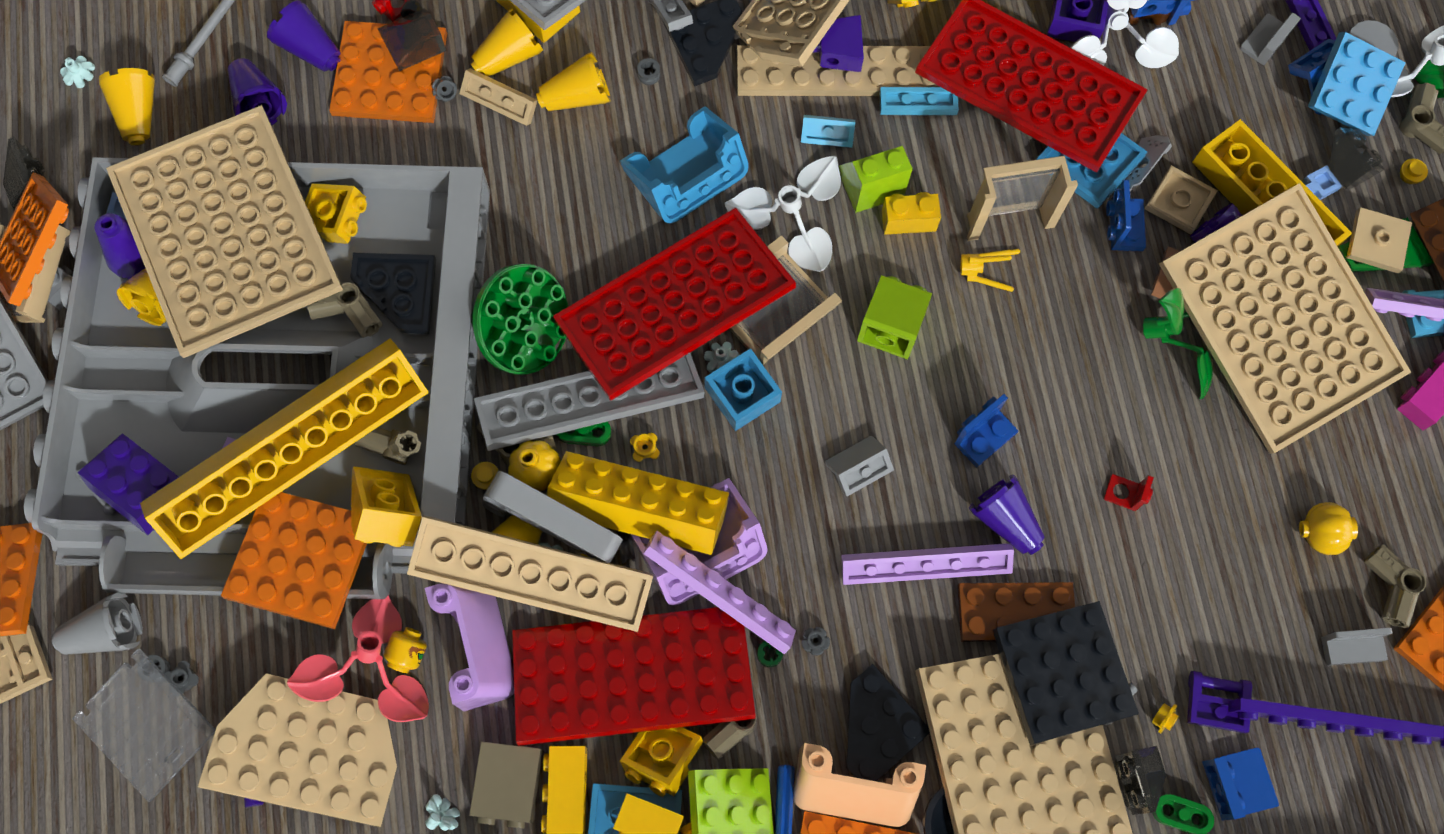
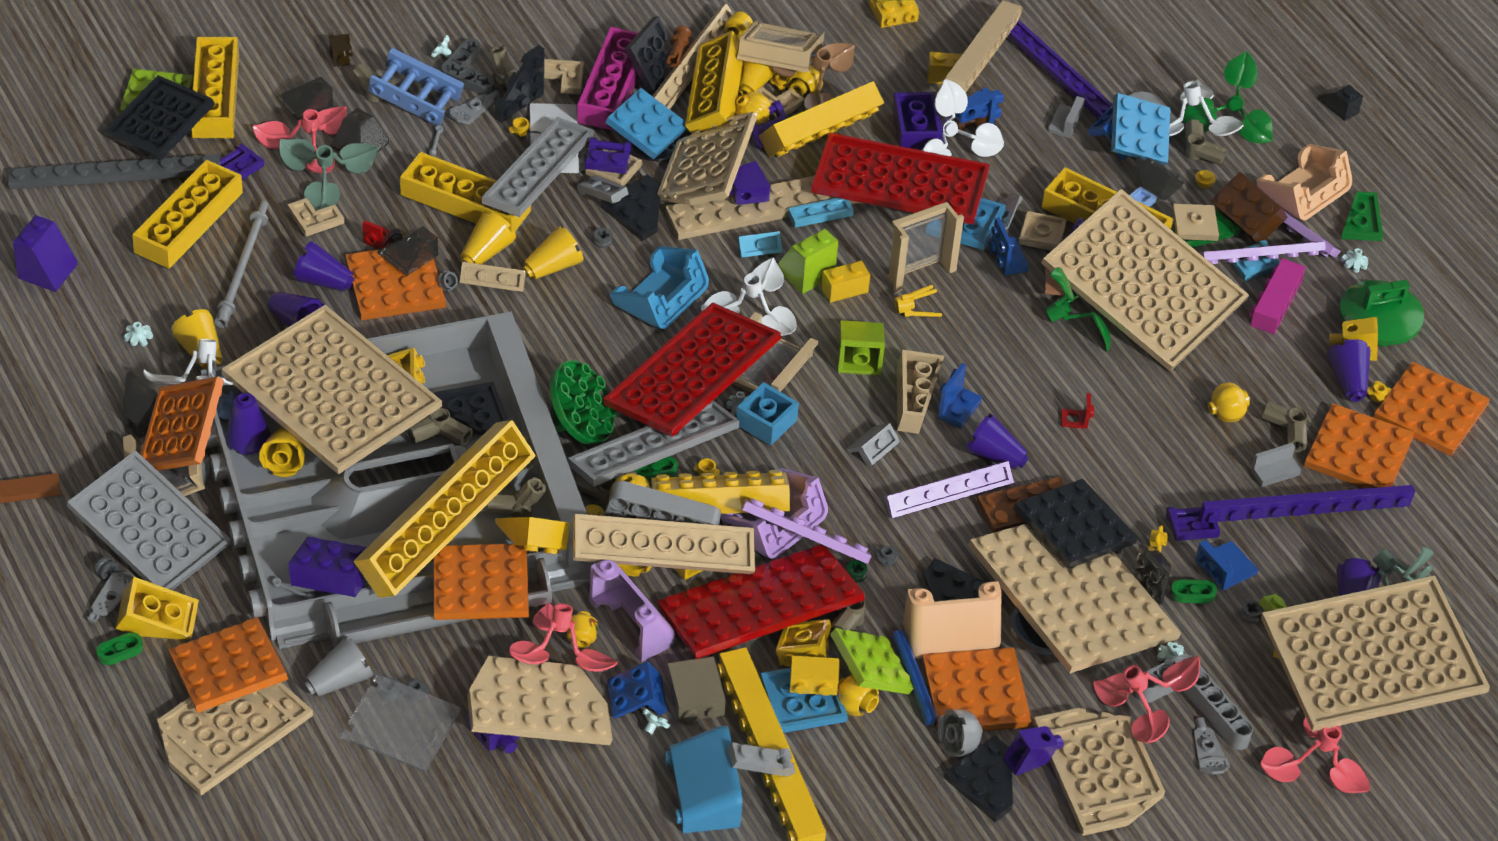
camera: 20 degrees left, 25 degrees down
(68, 152) = (205, 353): none -> white plant
(437, 764) = (635, 689): none -> blue bracket
(939, 398) = (915, 385): none -> tan wedge

